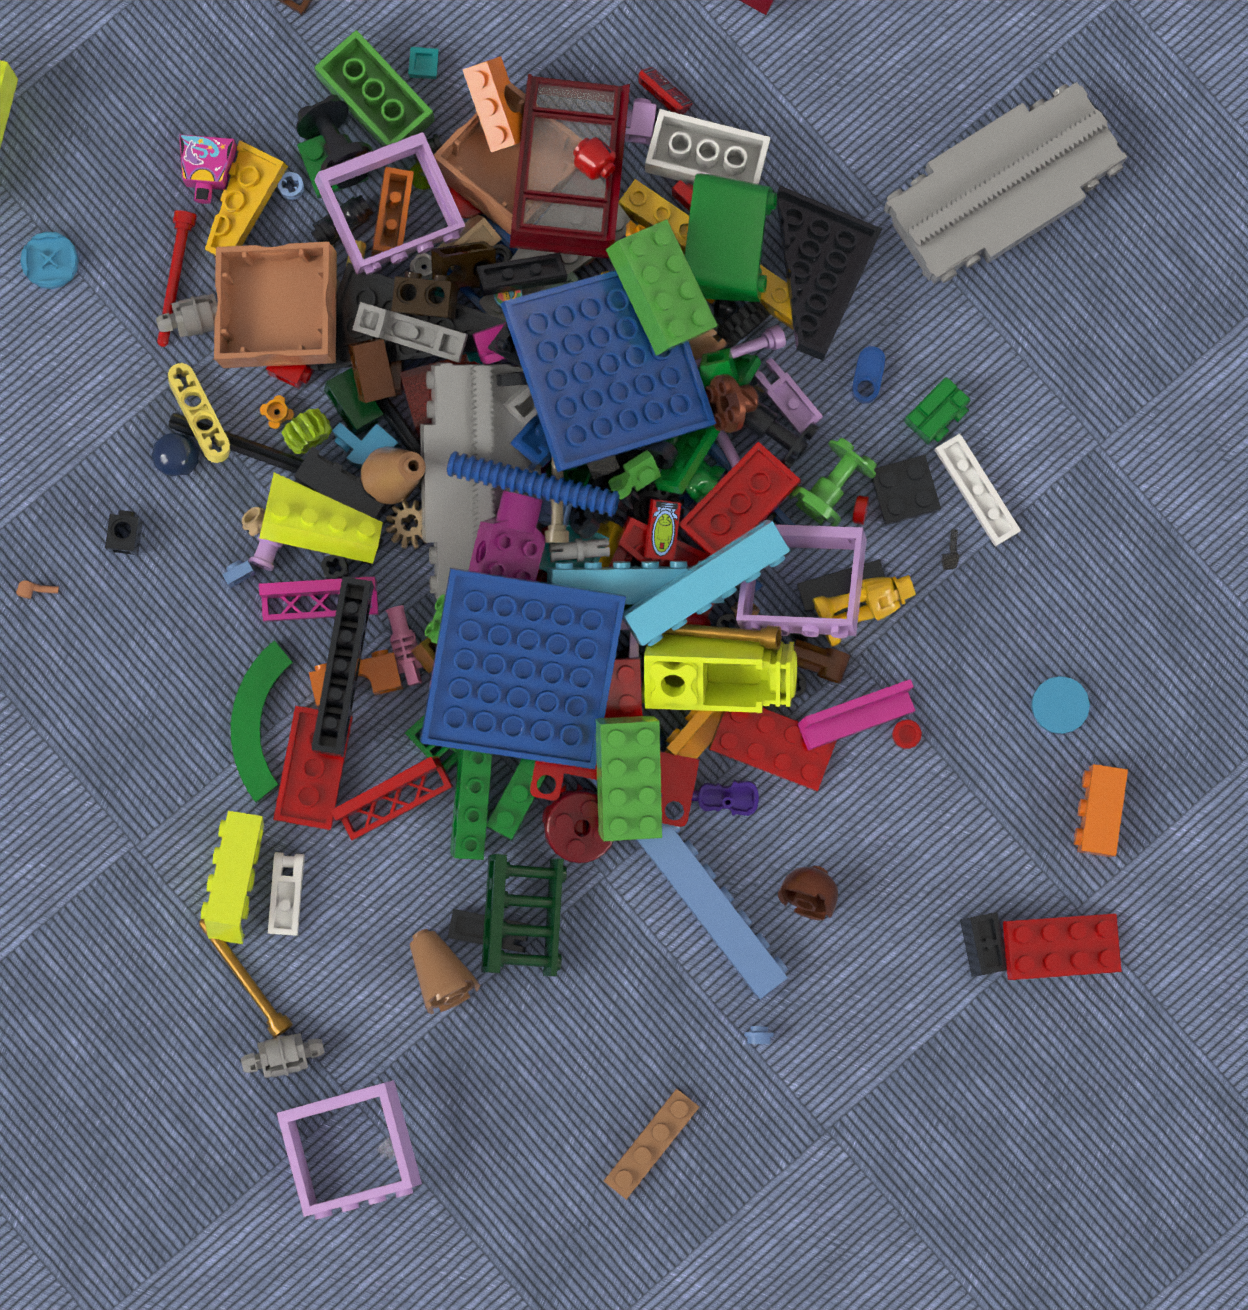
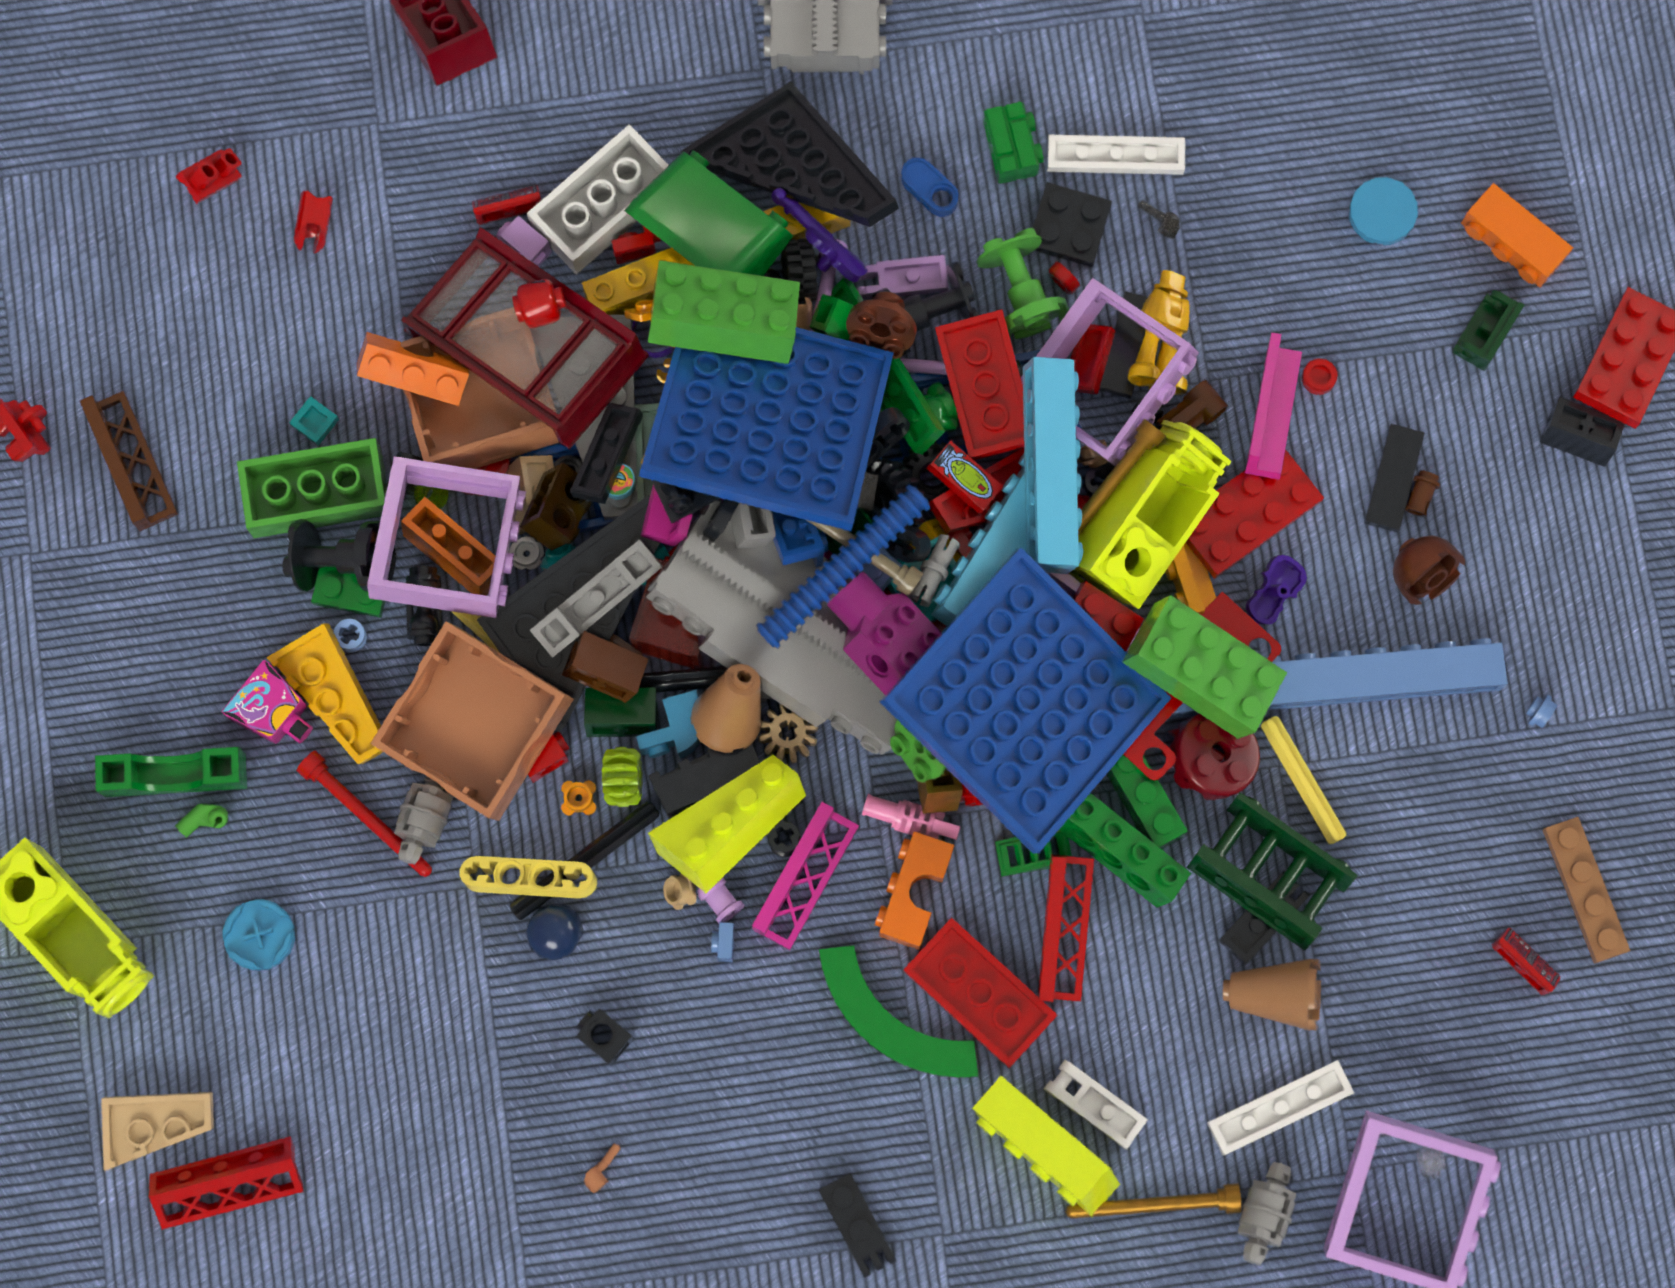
camera: 55 degrees left, 5 degrees down
(105, 783) = (856, 1223): none -> black hinge
(106, 170) = (202, 815): none -> bright green arm
(118, 129) = (149, 775): none -> green arch
(342, 666) = (900, 889): black brick -> none
(362, 1021) = (1280, 1108): none -> white plate
(424, 301) = (576, 565): dark brown brick -> none
(574, 1132) = (1526, 962): none -> red slope
(604, 899) = (1303, 780): none -> light yellow axle
(637, 474) = (896, 461): bright green plate -> none
(768, 340) = (833, 252): none -> dark purple piece
(812, 565) = (1091, 357): none -> red tile
(865, 832) = (1394, 478): none -> black tile
(866, 858) = (1422, 493): none -> reddish brown pin
(1018, 832) = (1487, 329): none -> dark green hinge

